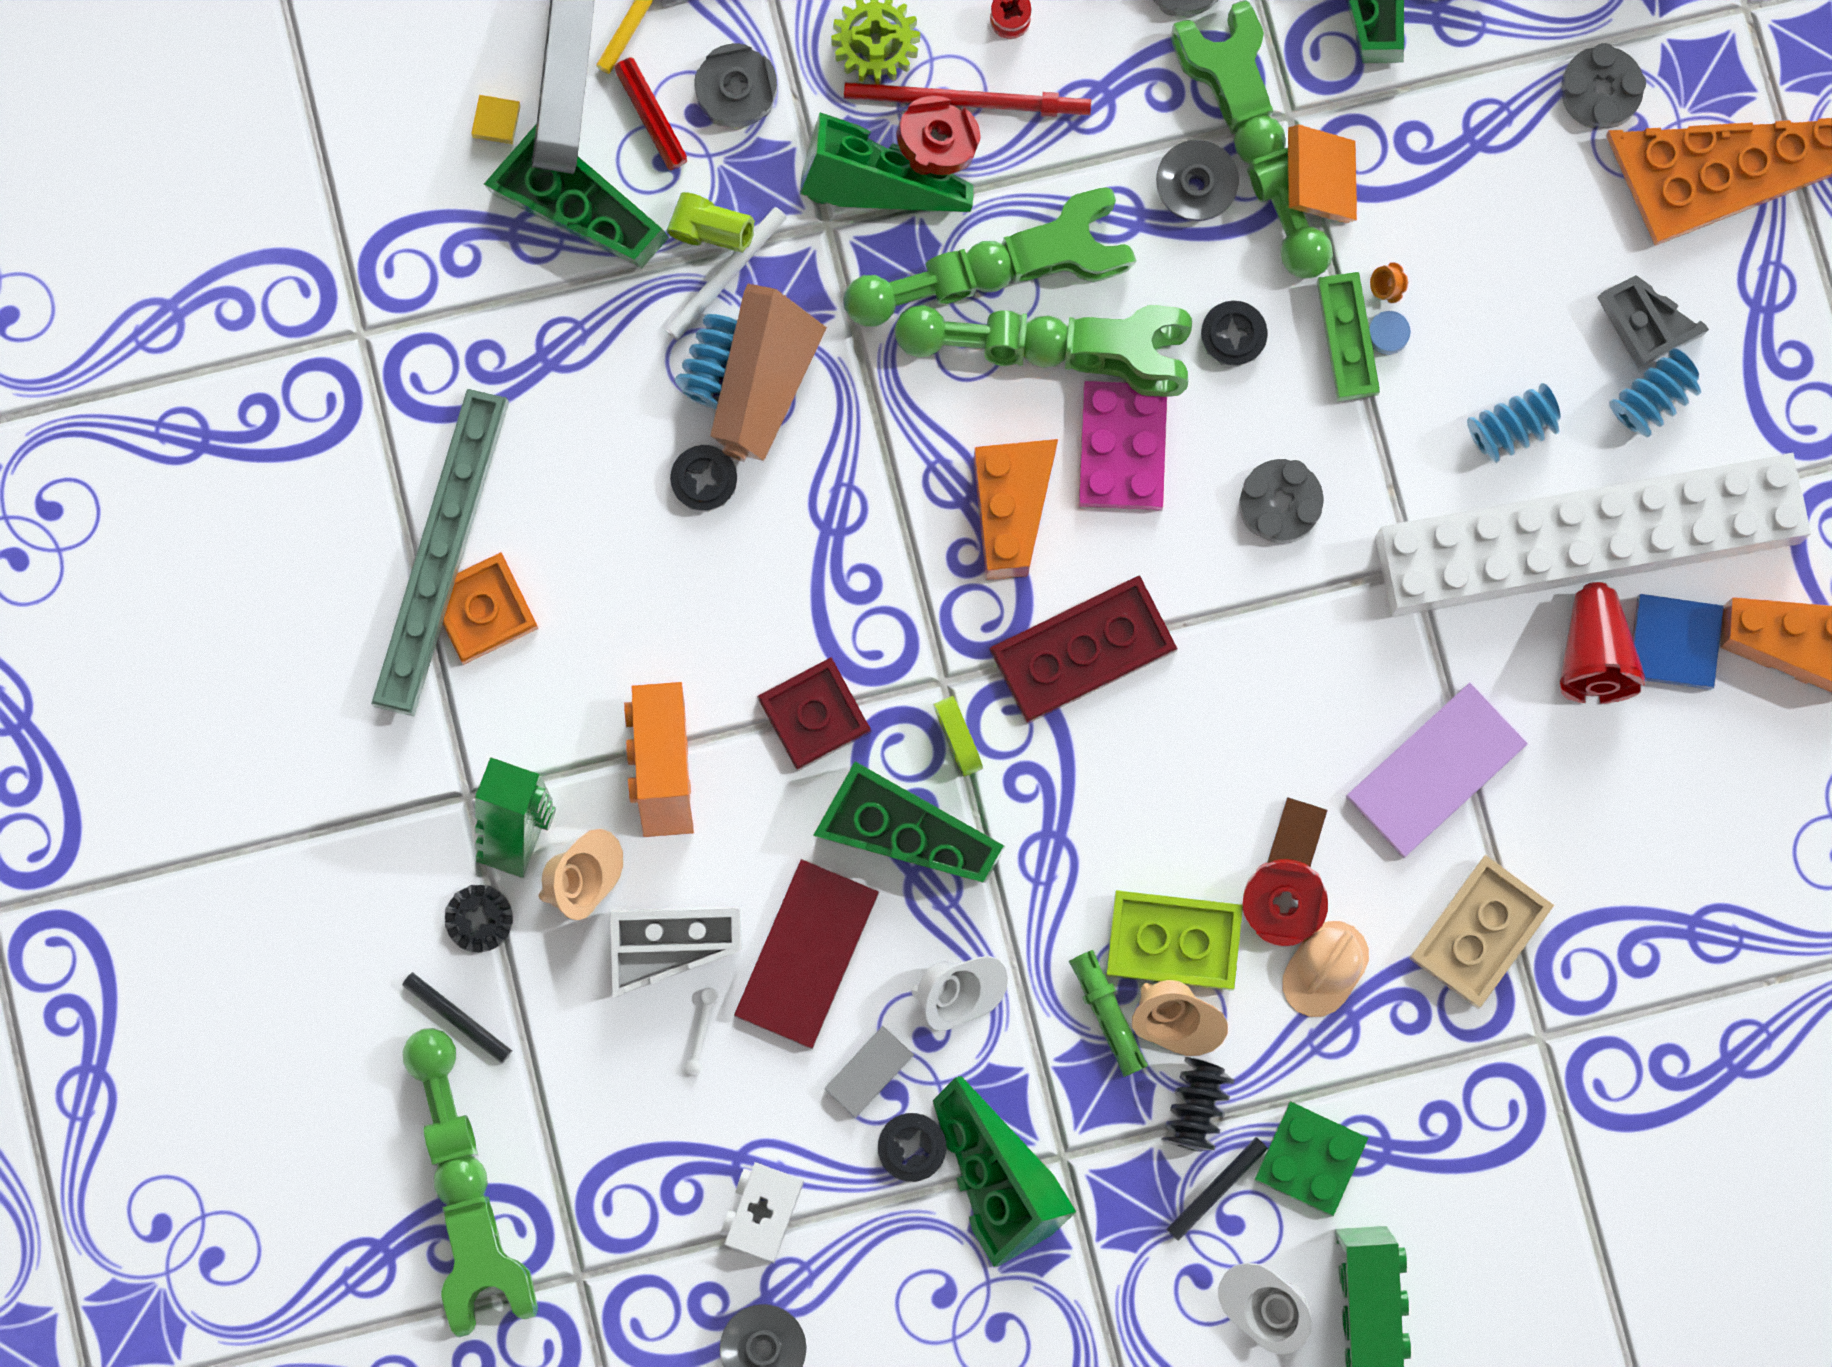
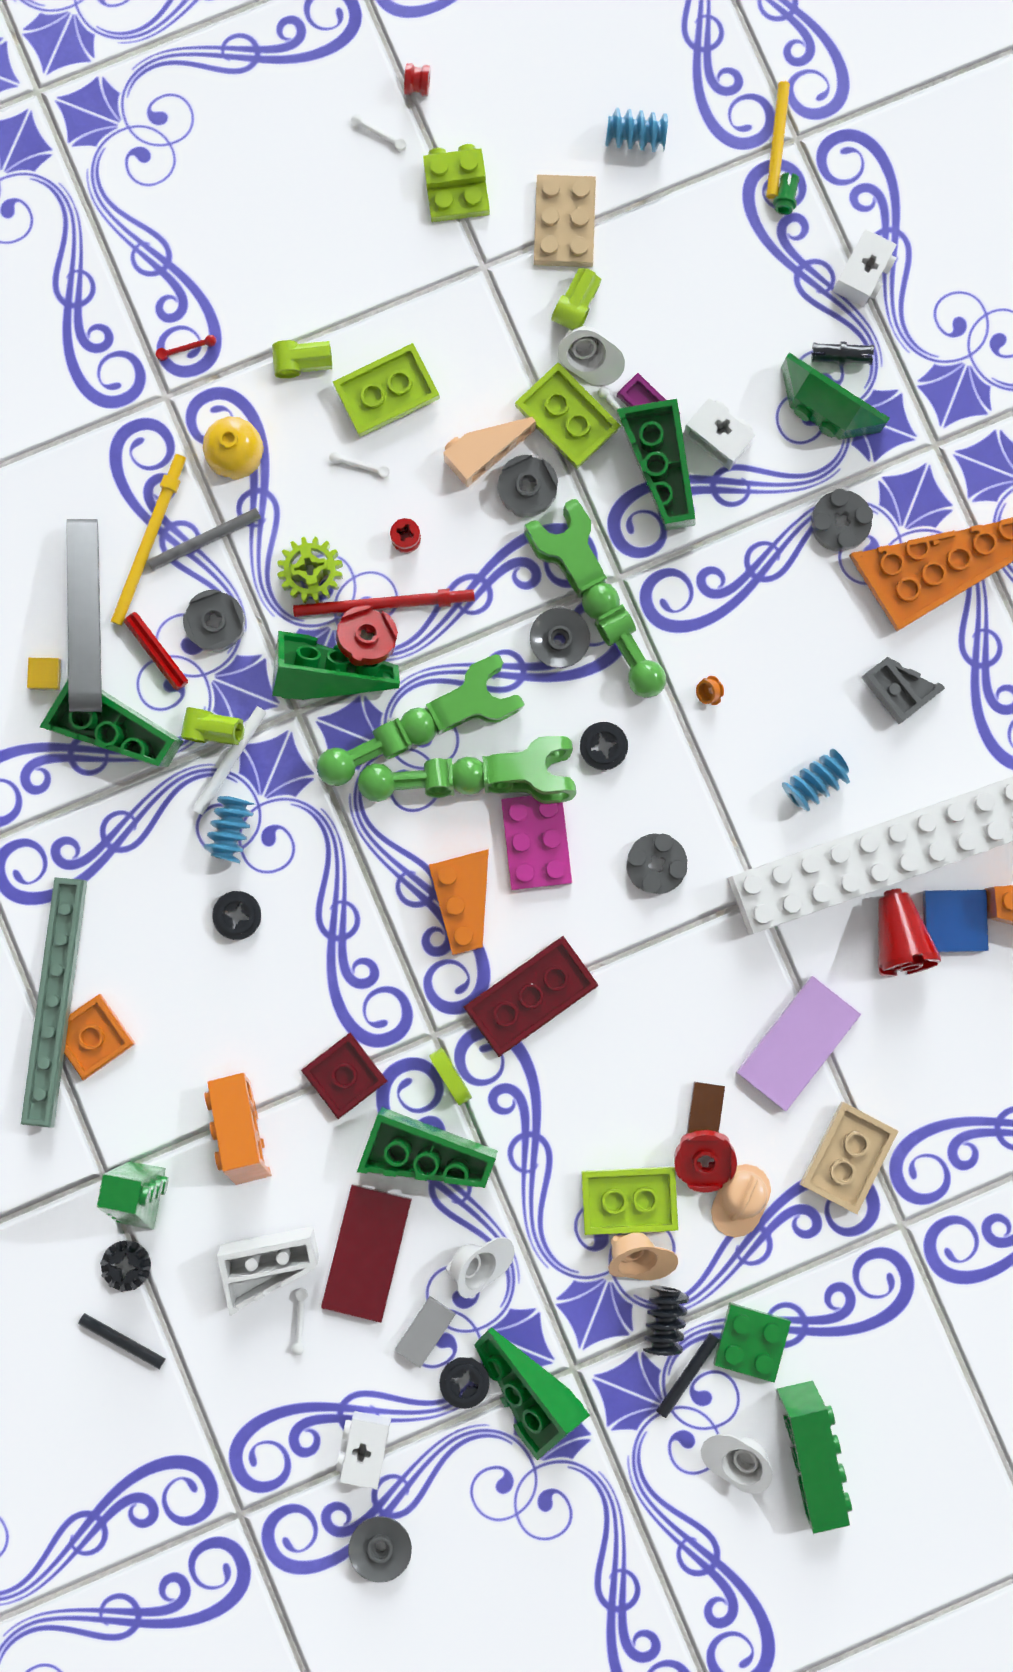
camera: 10 degrees left, 5 degrees up
(461, 1185) = (142, 1463): bright green piece -> none
(582, 874) = (195, 1225): light nougat piece -> none
(763, 371) = (266, 832): nougat slope -> none
(1108, 1013) = (587, 1257): bright green pin -> none
(1322, 174) = (649, 619): orange tile -> none
(1348, 336) = (686, 735): bright green plate -> none
(1389, 332) = (715, 726): medium blue tile -> none
(1657, 393) = (916, 741): dark azure piece -> none

